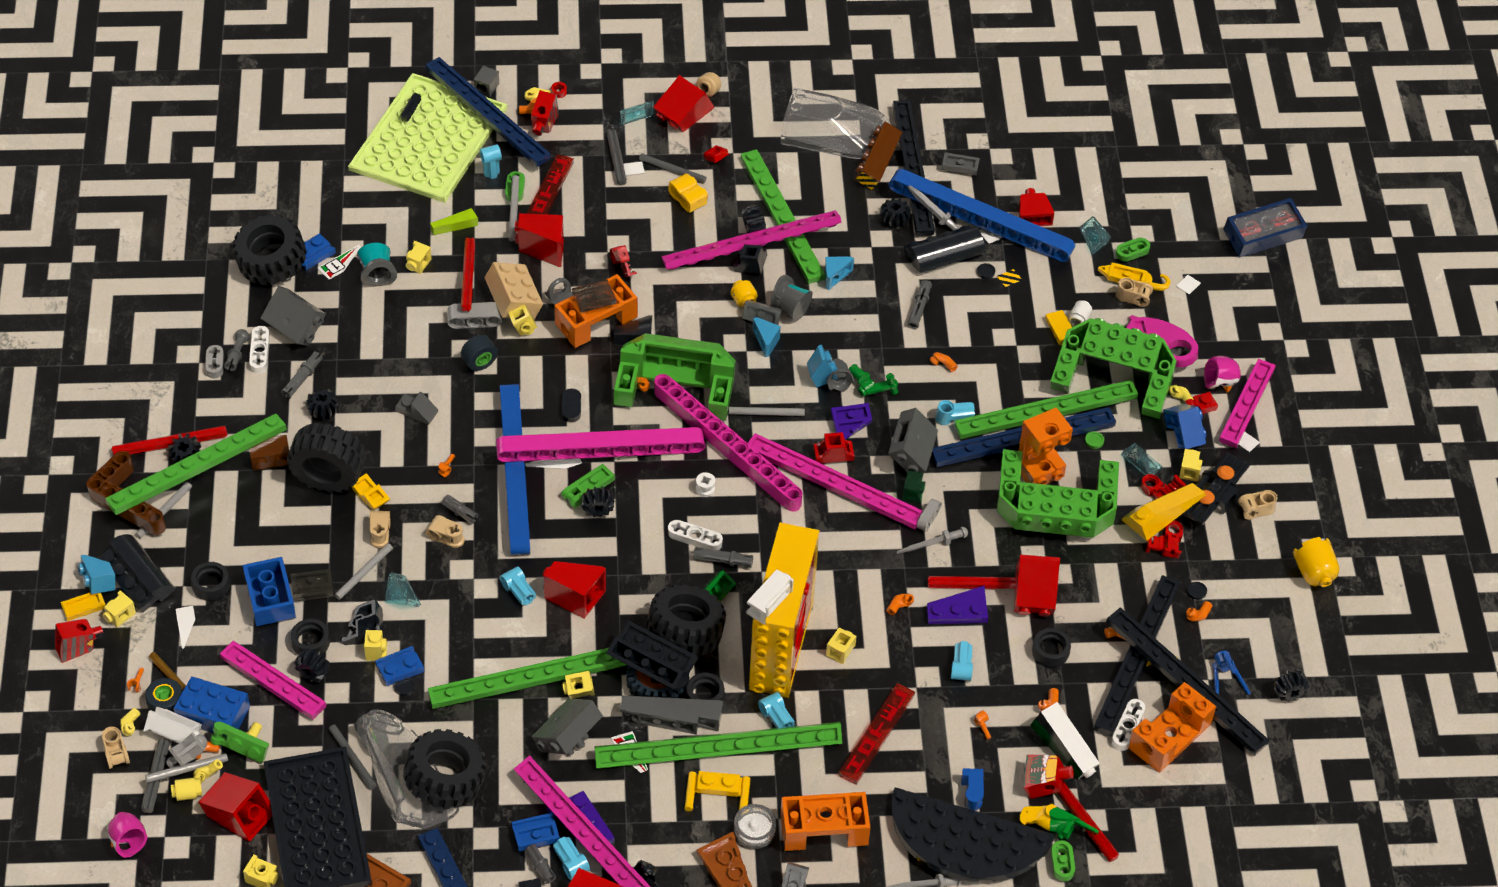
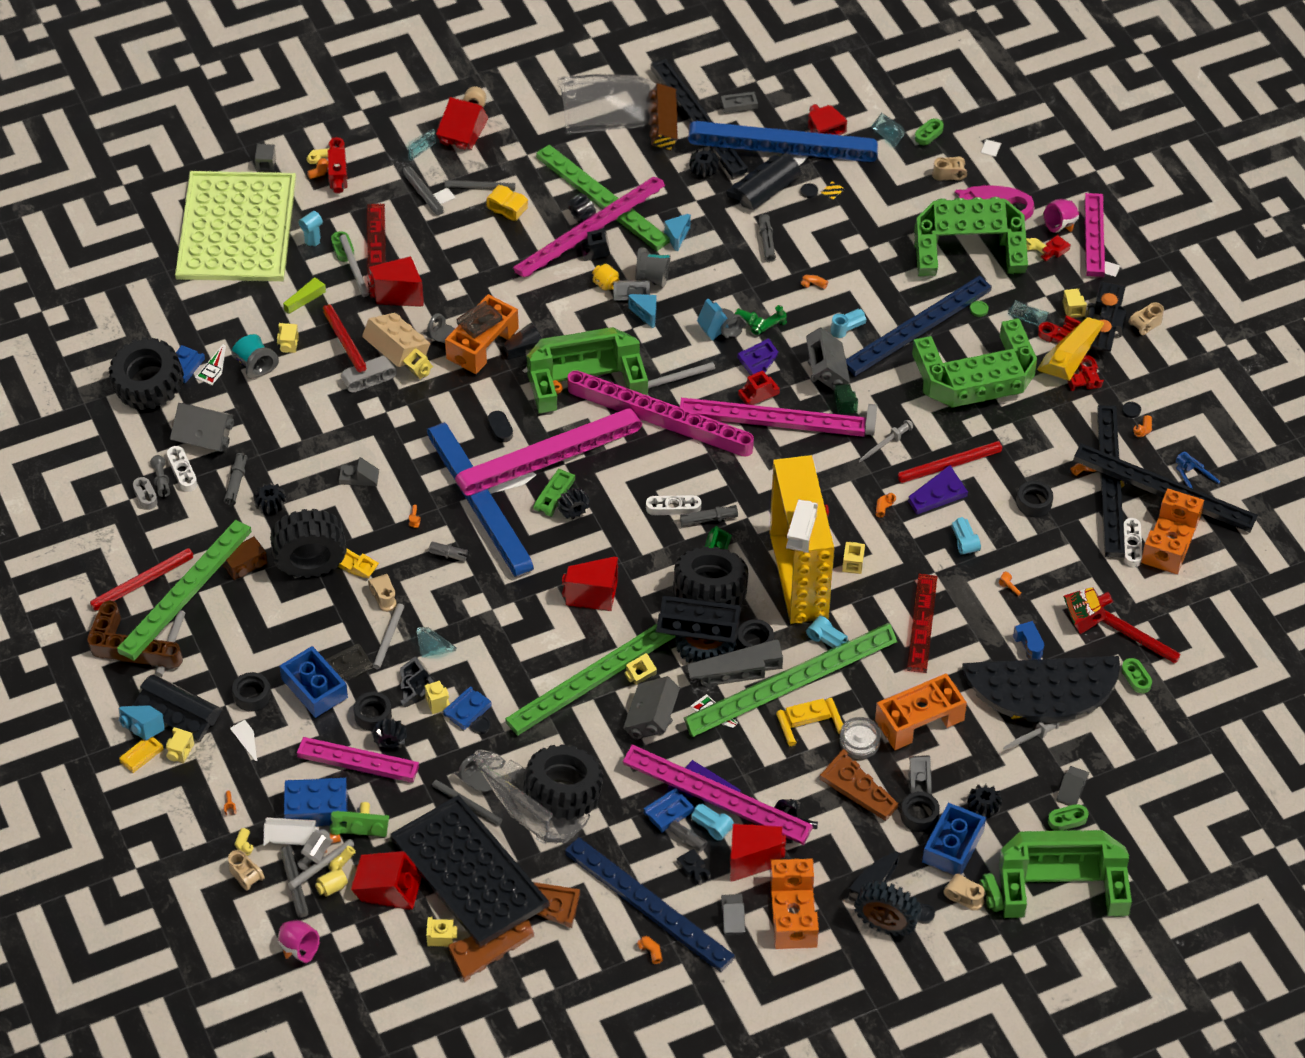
camera: 20 degrees left, 0 degrees up
(75, 638) = (153, 785): red torso -> none
(163, 694) = (263, 806): black wheel -> none
(165, 669) = (257, 787): pearl gold bar -> none
(187, 442) = (162, 574): black gear -> none
(410, 107) = (207, 202): black axle -> none
(445, 531) = (445, 574): tan piece -> none
(479, 352) = (393, 405): black wheel -> none
(488, 112) = (283, 184): dark blue plate -> none
(516, 583) = (534, 598): medium azure piece -> none
(617, 256) = (473, 279): red piece -> none
(701, 487) = (659, 457): white wheel -> none
(716, 153) = (513, 160): red tile -> none
(944, 218) = (749, 154): light grey sword -> none
(1036, 585) = (998, 448): red slope -> none
(1038, 438) = (945, 318): orange plate -> none
(1053, 697) = (1058, 546): orange arm -> none
(1053, 819) = (1112, 643): animal -> none
(1058, 324) = (899, 219): yellow tile -> none
(1065, 404) = (924, 295): bright green plate -> none
(1065, 741) = (1086, 571): white slope -> none
(1080, 313) = (912, 202): white brick -> none
(1116, 272) = (927, 156): yellow plate -> none
(1186, 424) = (1055, 268): blue brick -> none
(1265, 227) = (1034, 77): brick -> none
(1291, 685) = (1253, 462): black gear -> none
(1317, 562) = (1224, 351): yellow cylinder -> none

